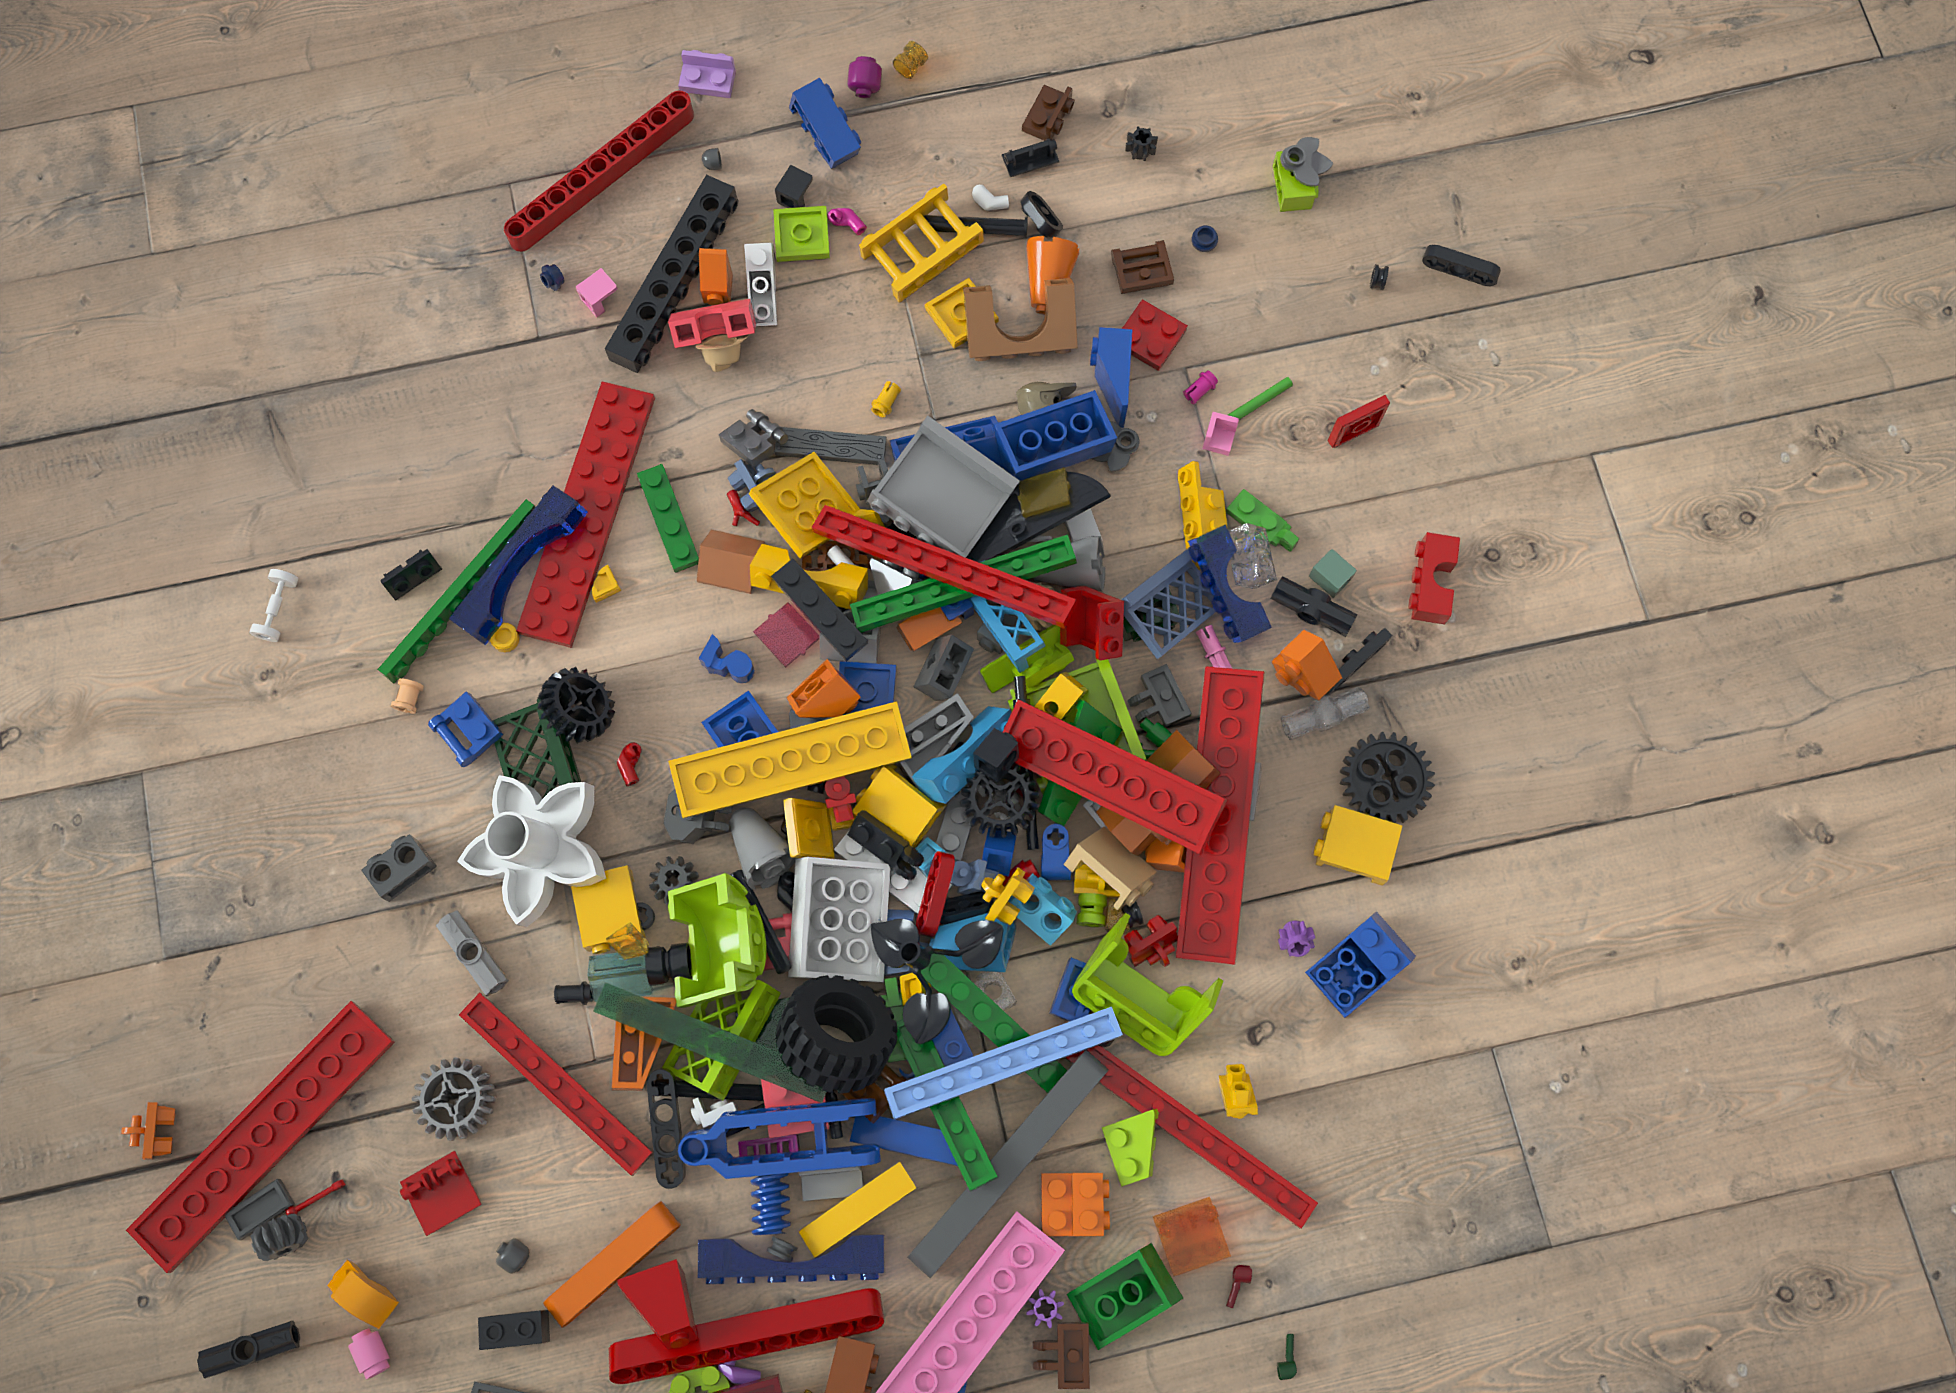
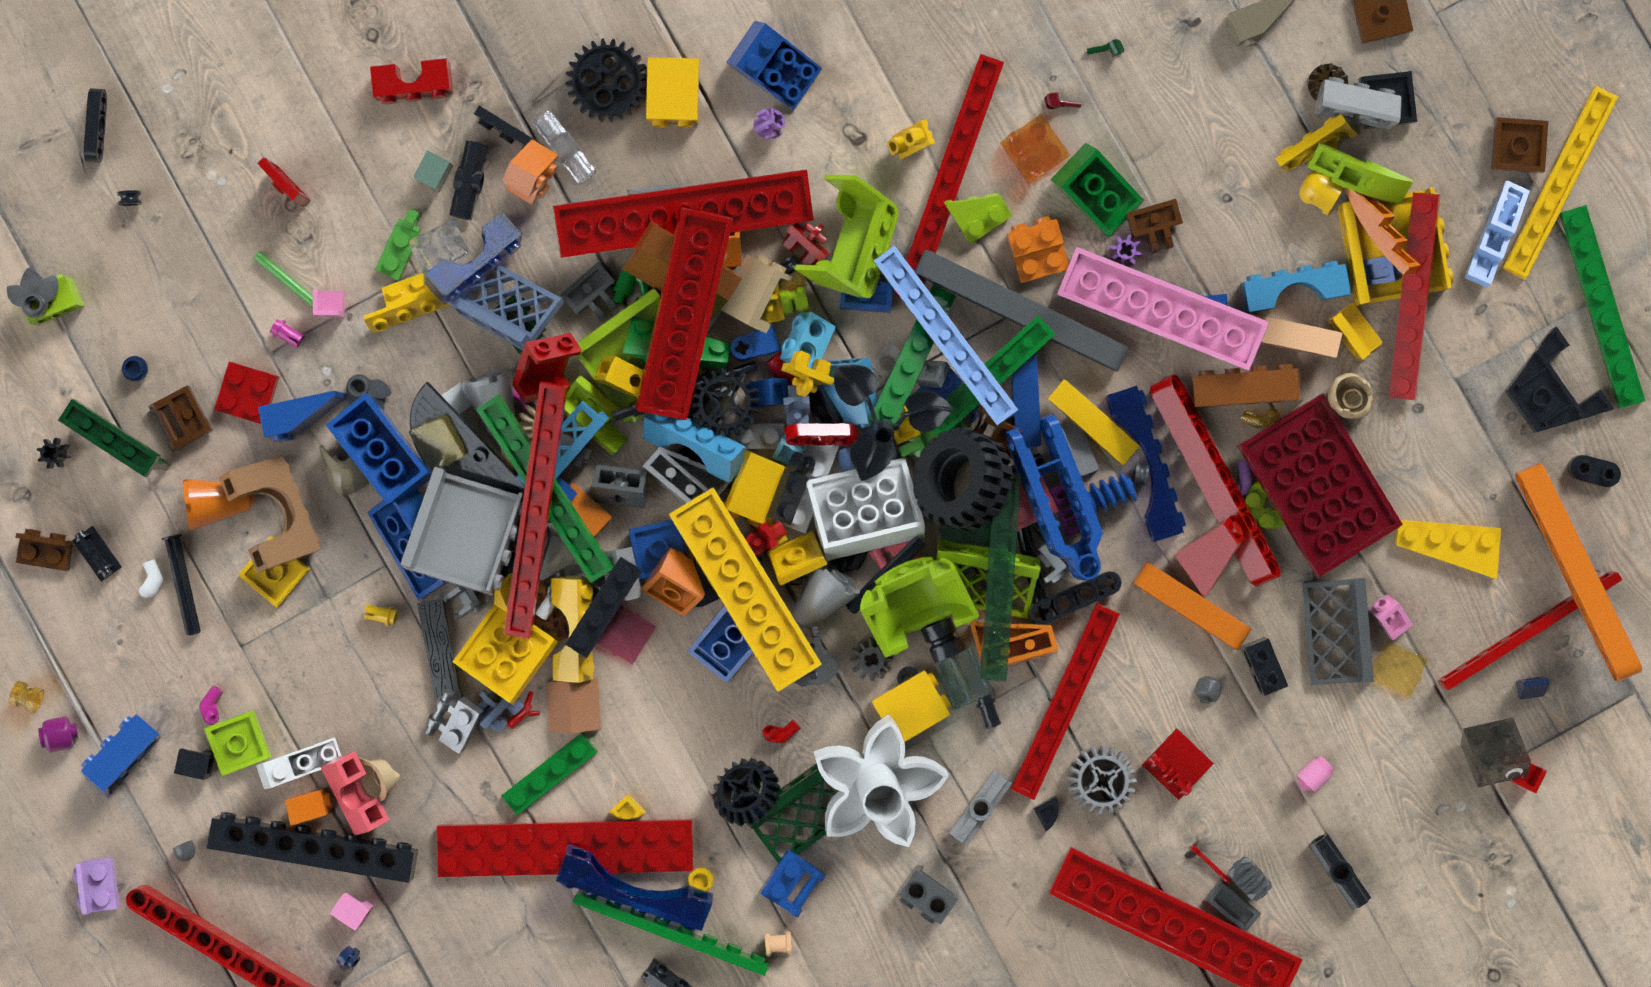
camera: 100 degrees left, 15 degrees up
(361, 1295) = (1274, 797): light orange brick -> none
(441, 1027) = (1047, 812): none -> black tile
(628, 942) = (935, 677): clear yellow slope -> none
(735, 663) = (667, 667): blue leg -> none
(925, 268) = (219, 602): yellow fence -> none
(965, 1036) = (933, 374): none -> dark grey tile
(996, 754) = (691, 414): black brick -> none
(1041, 214) = (154, 526): black plate -> none
(1138, 193) = (111, 439): none -> dark green fence
(1213, 648) = (536, 255): bright pink axle -> none

